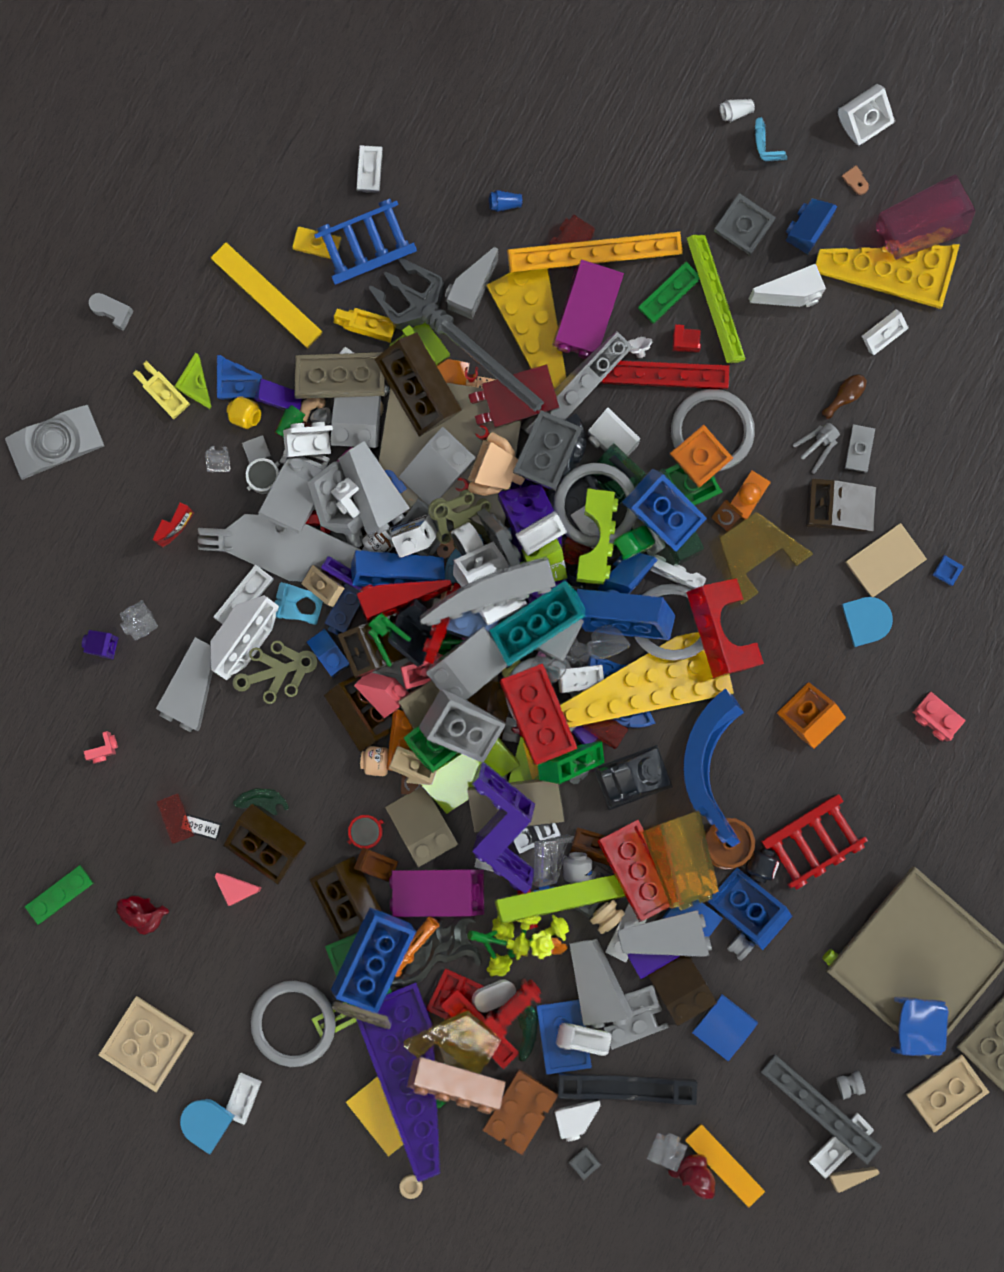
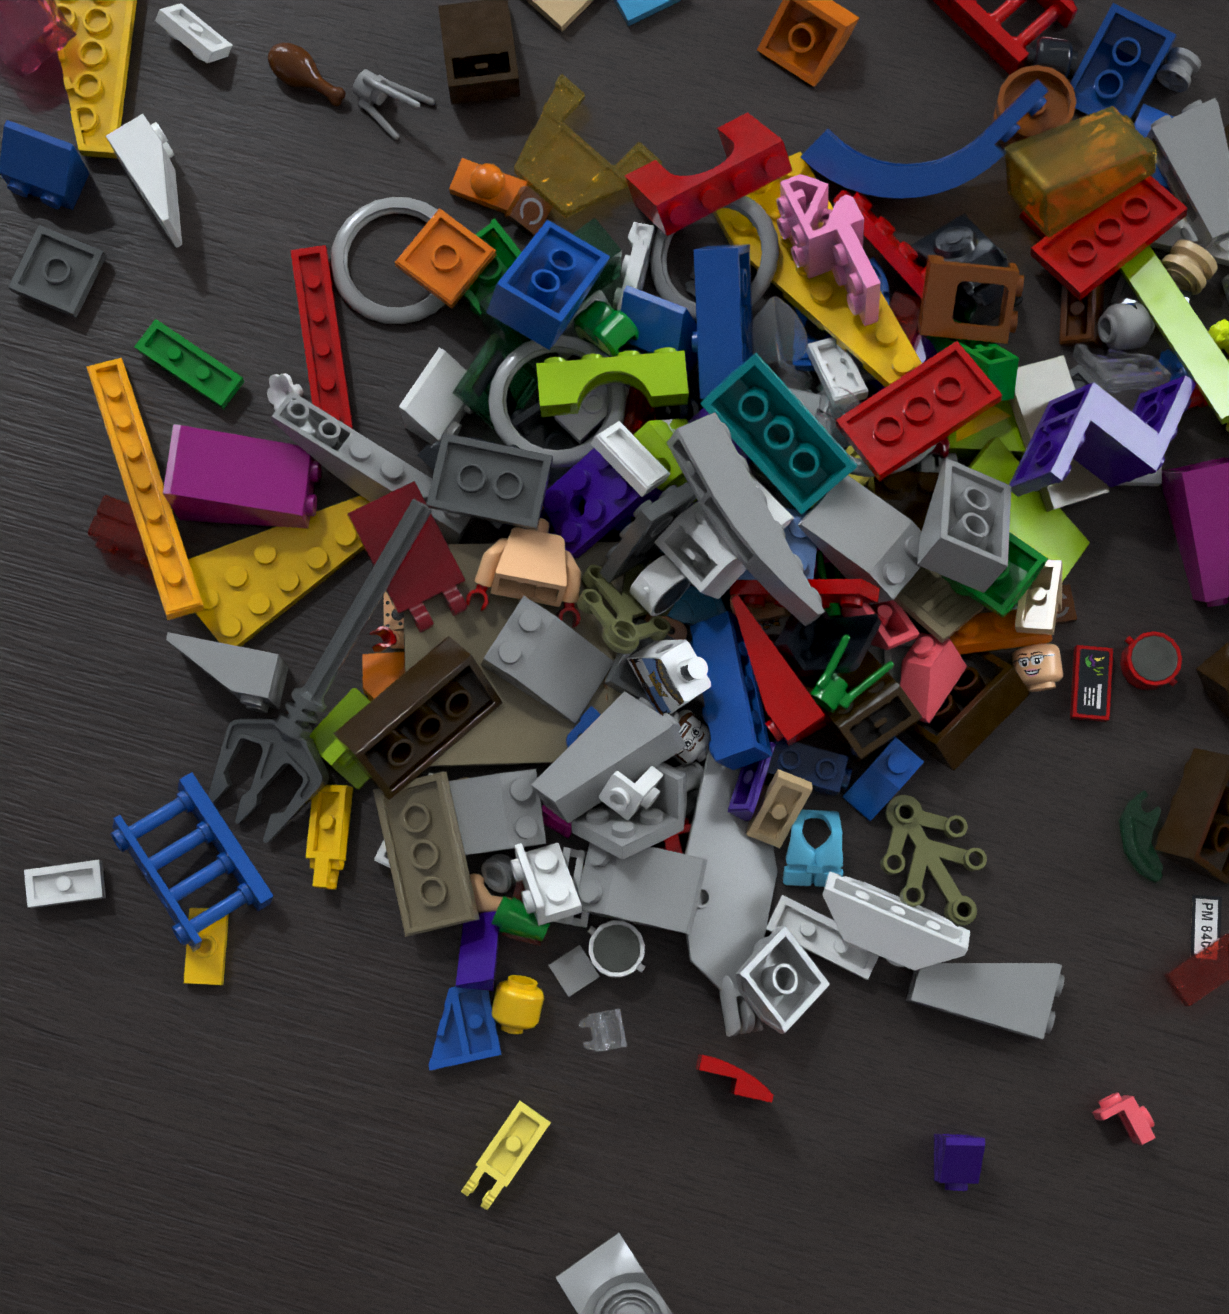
camera: 105 degrees left, 5 degrees down
(106, 306) = (379, 1286): light grey leg -> none
(138, 620) = (903, 1103): clear brick -> none
(193, 382) = (483, 1102): lime tile -> none
(222, 563) = (780, 980): none -> light grey slope
(266, 295) = (309, 1012): yellow tile -> none
(360, 793) = (1091, 683): none -> tile
(375, 864) = (1200, 632): reddish brown tile -> none
(421, 826) = (1122, 573): dark tan slope -> none
(503, 200) = (82, 653): blue cone -> none
(608, 746) = (940, 293): none -> dark orange window
(656, 732) = (881, 235): none -> red plate
(660, 685) = (829, 241): none -> bright pink piece
(686, 339) = (260, 326): red panel -> none
(716, 298) = (185, 291): lime tile -> none
(859, 448) = (382, 40): light grey plate -> none

